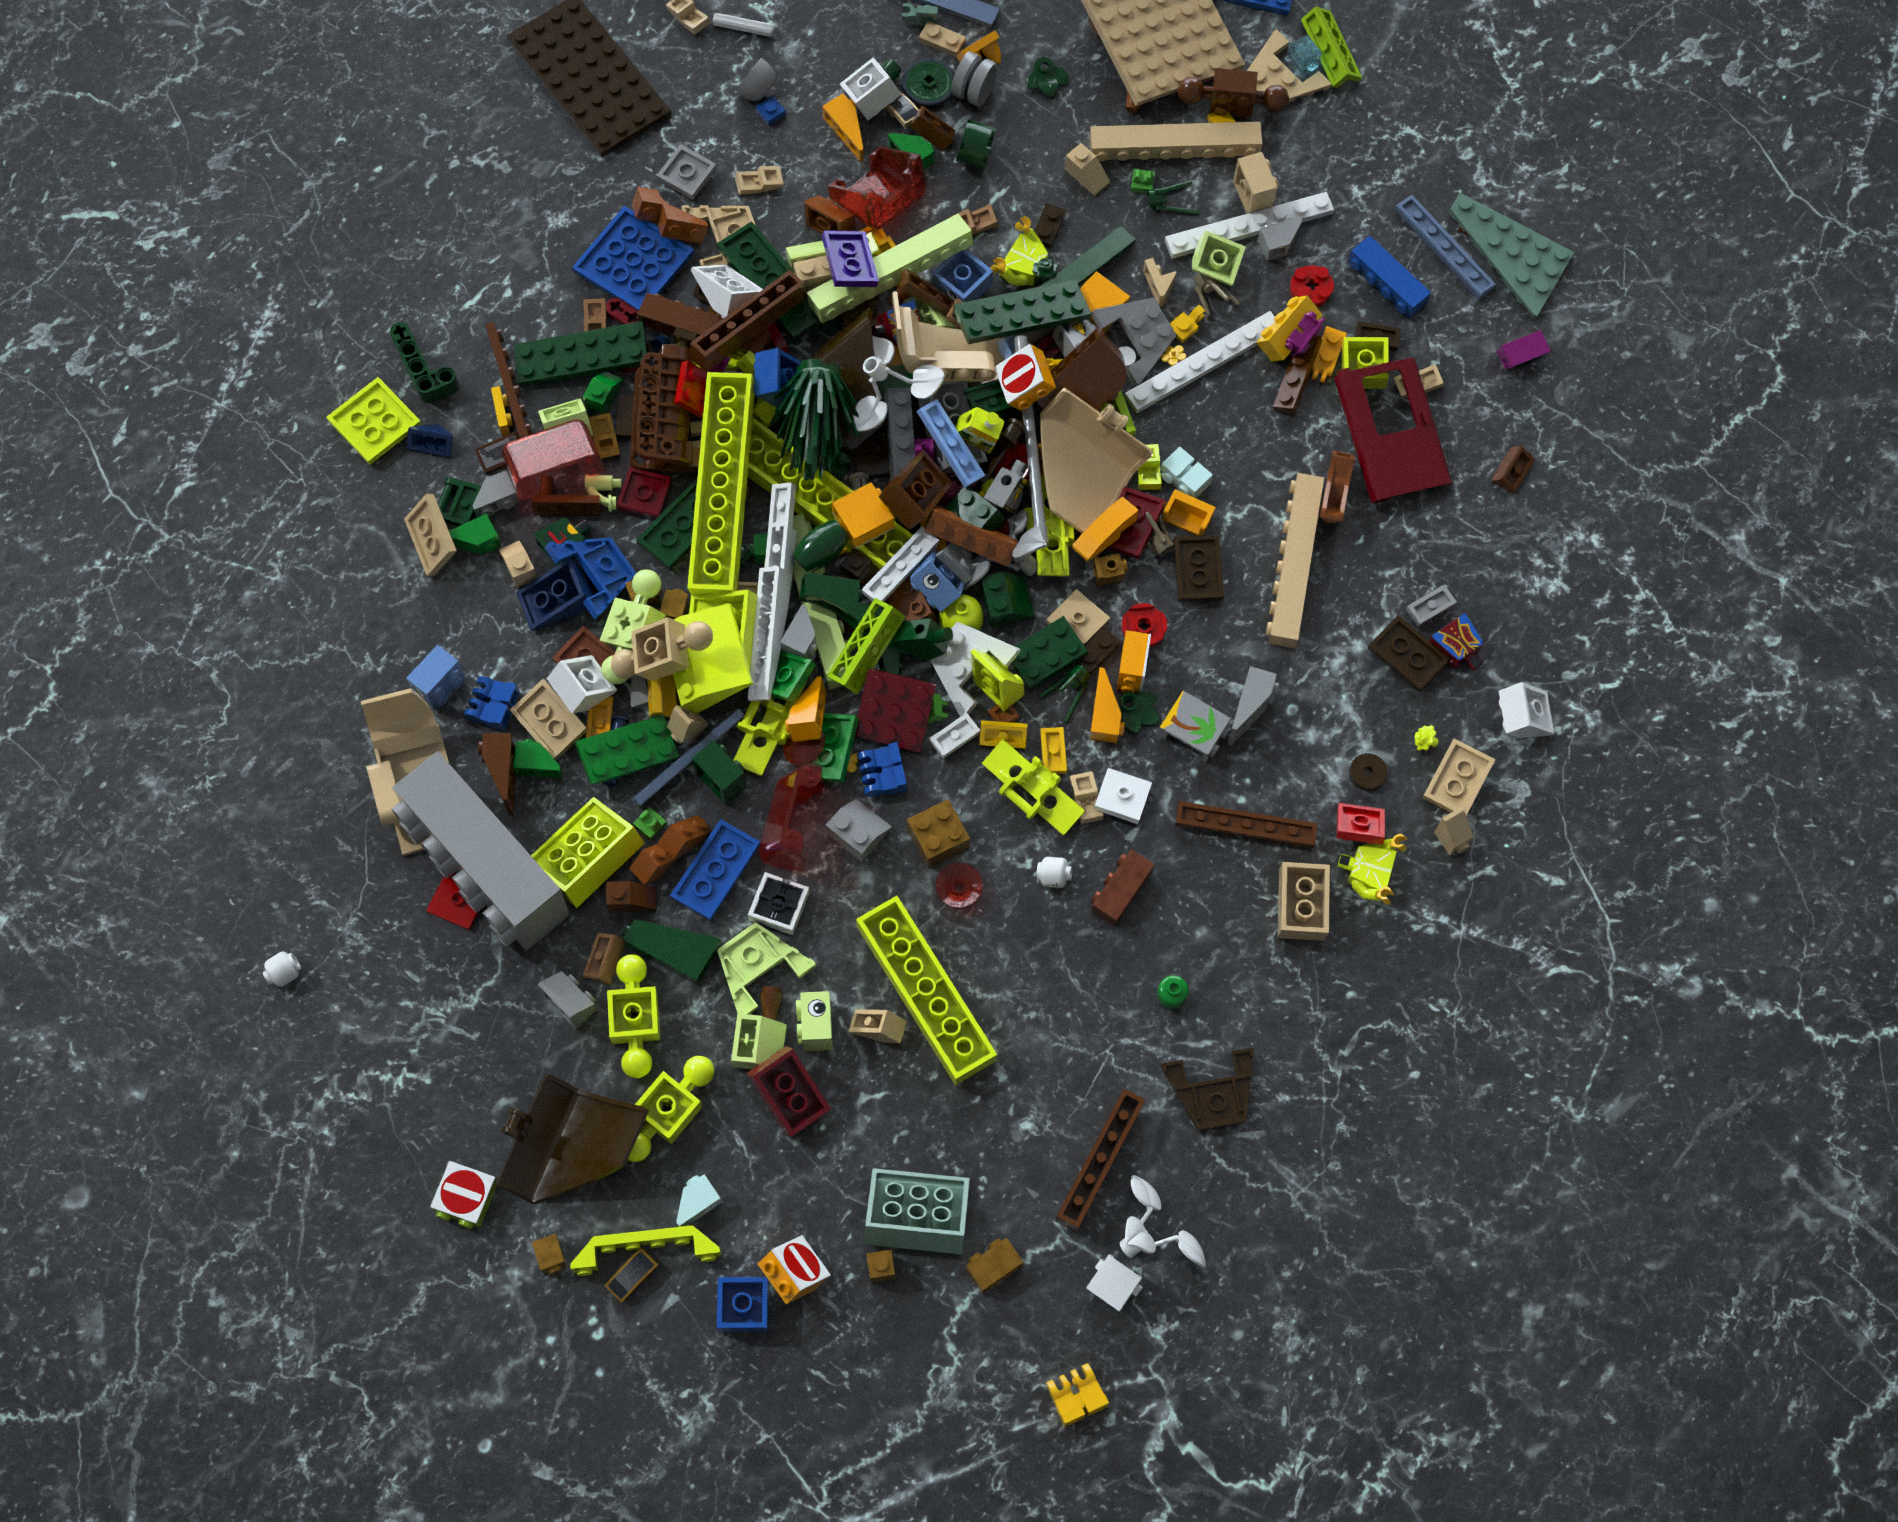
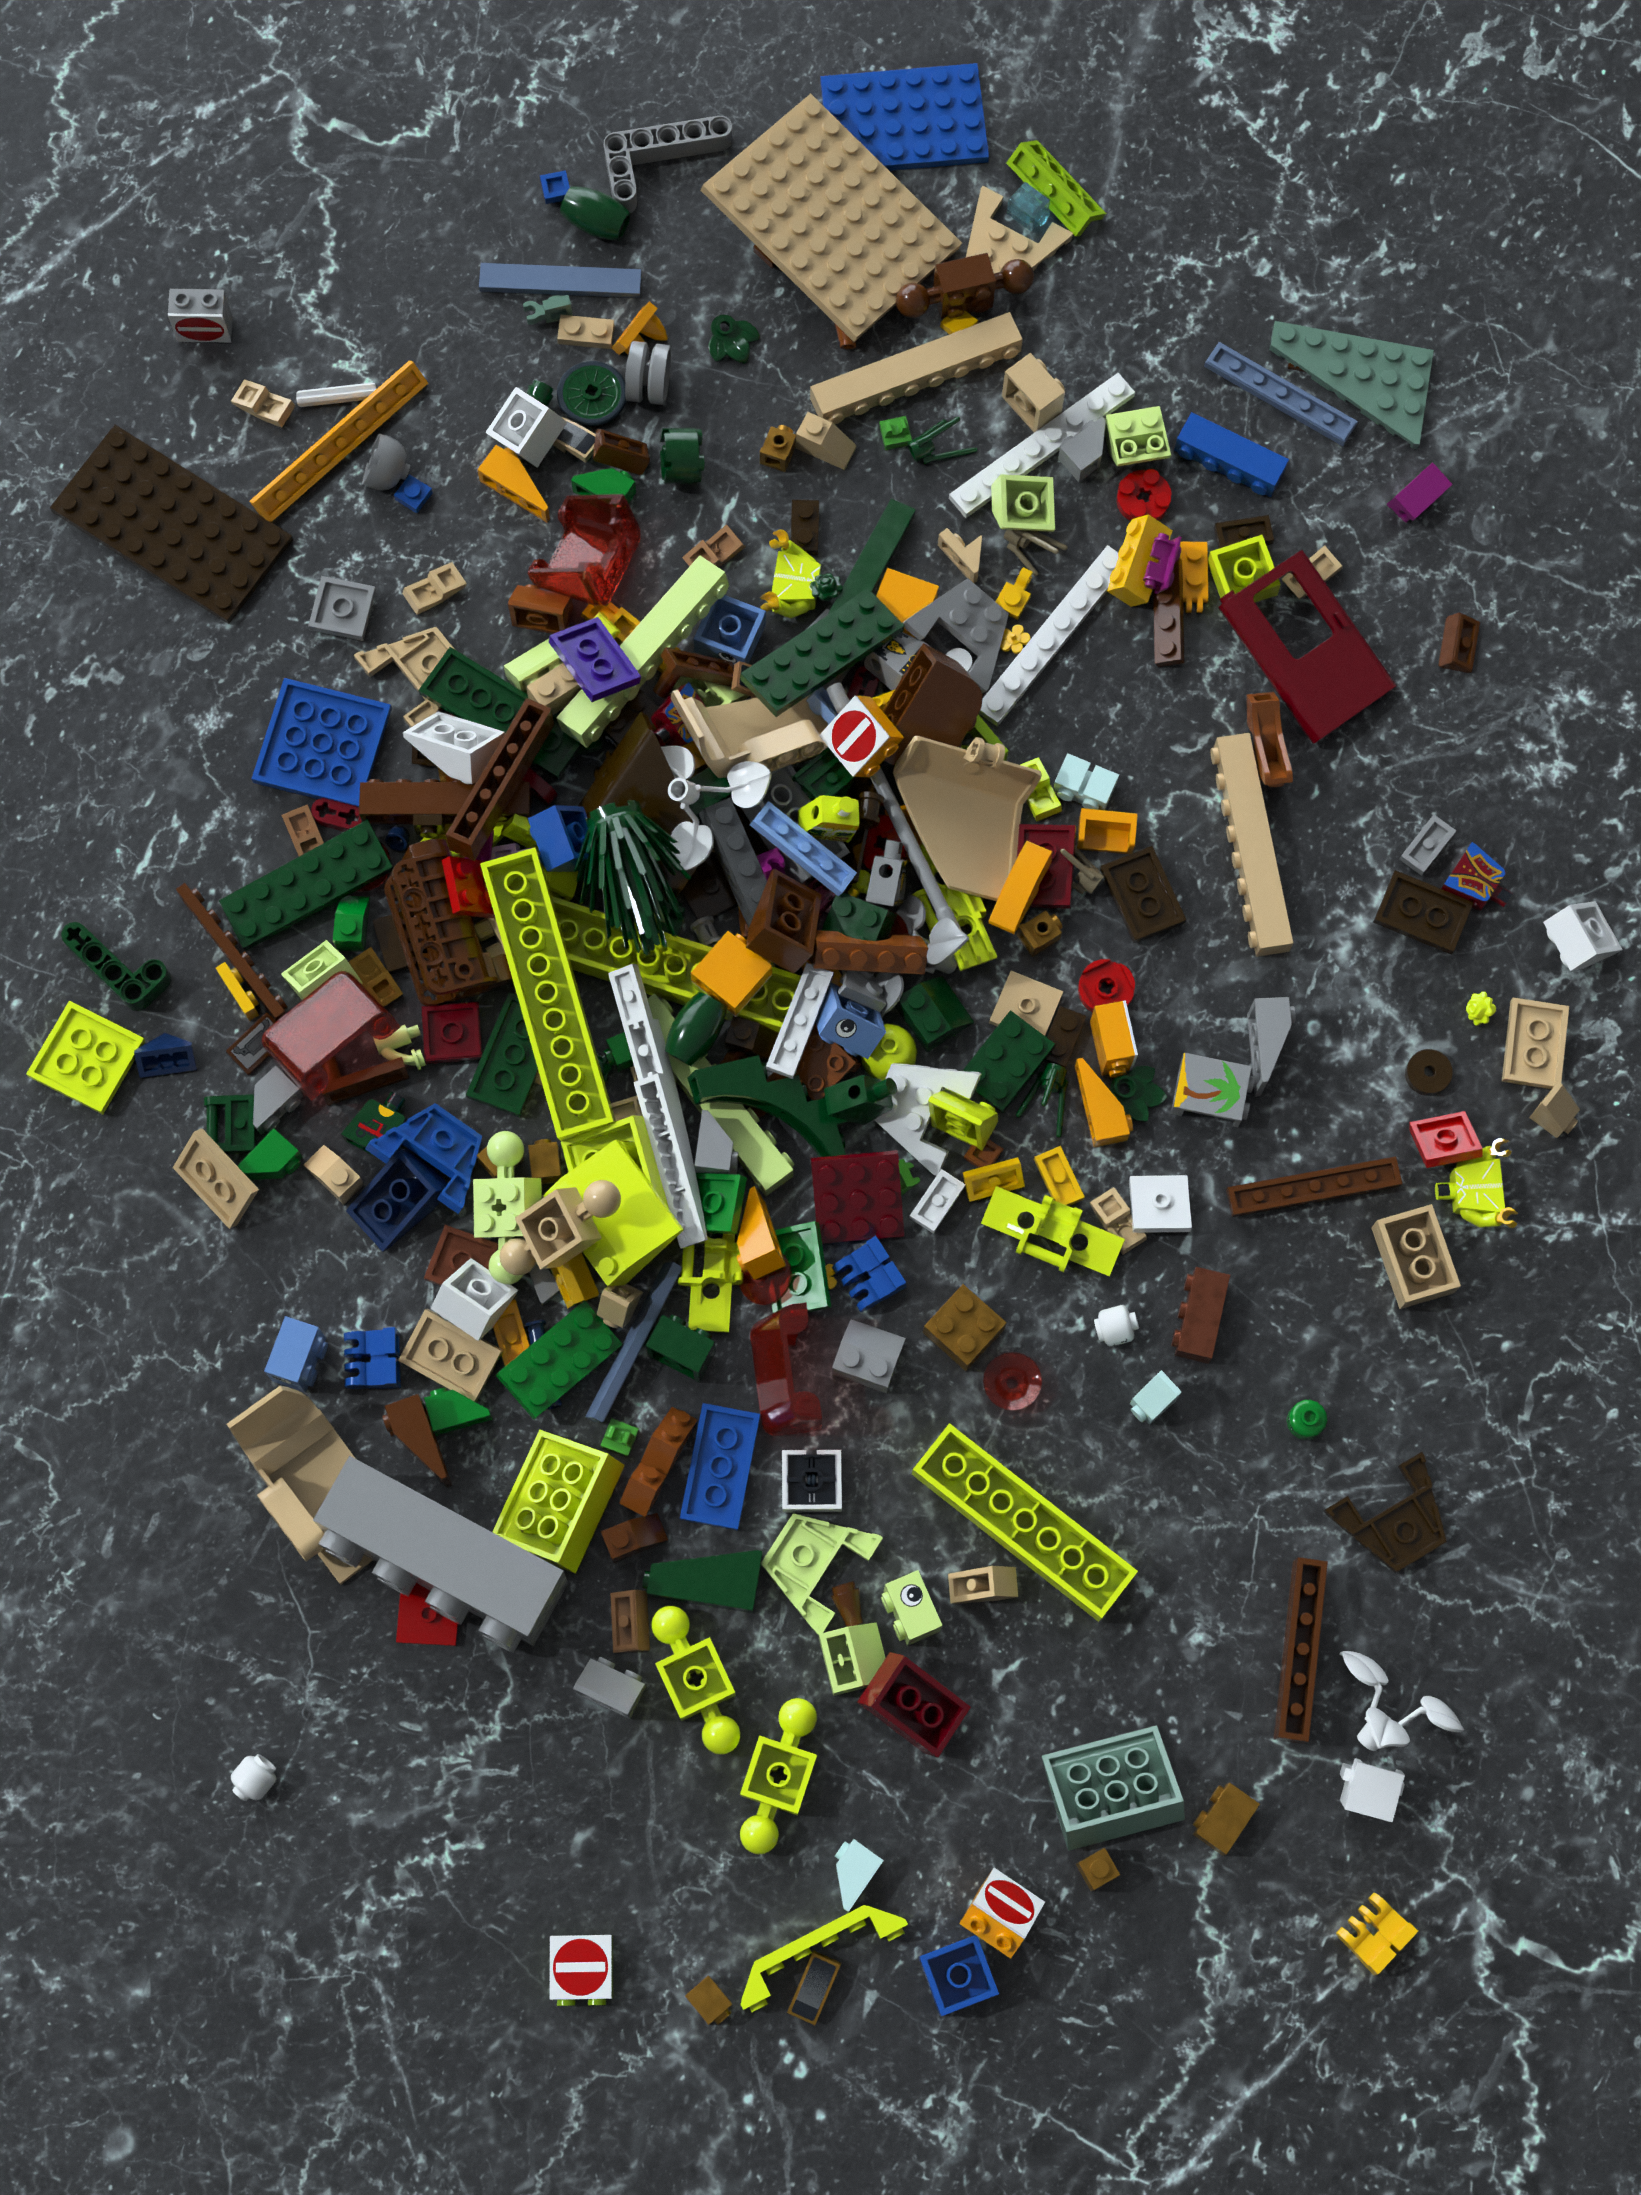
camera: 20 degrees left, 5 degrees up
(567, 1140) = (681, 1858): dark brown panel -> none
(671, 221) = (351, 679): dark orange arch -> none
(731, 56) = (339, 442): none -> light orange plate
(869, 647) = (805, 1136): lime fence -> none
(1050, 163) = (778, 455): none -> pearl gold brick
(1061, 934) = (1154, 1398): none -> light aqua slope
(1322, 239) = (1136, 436): none -> yellowish green slope

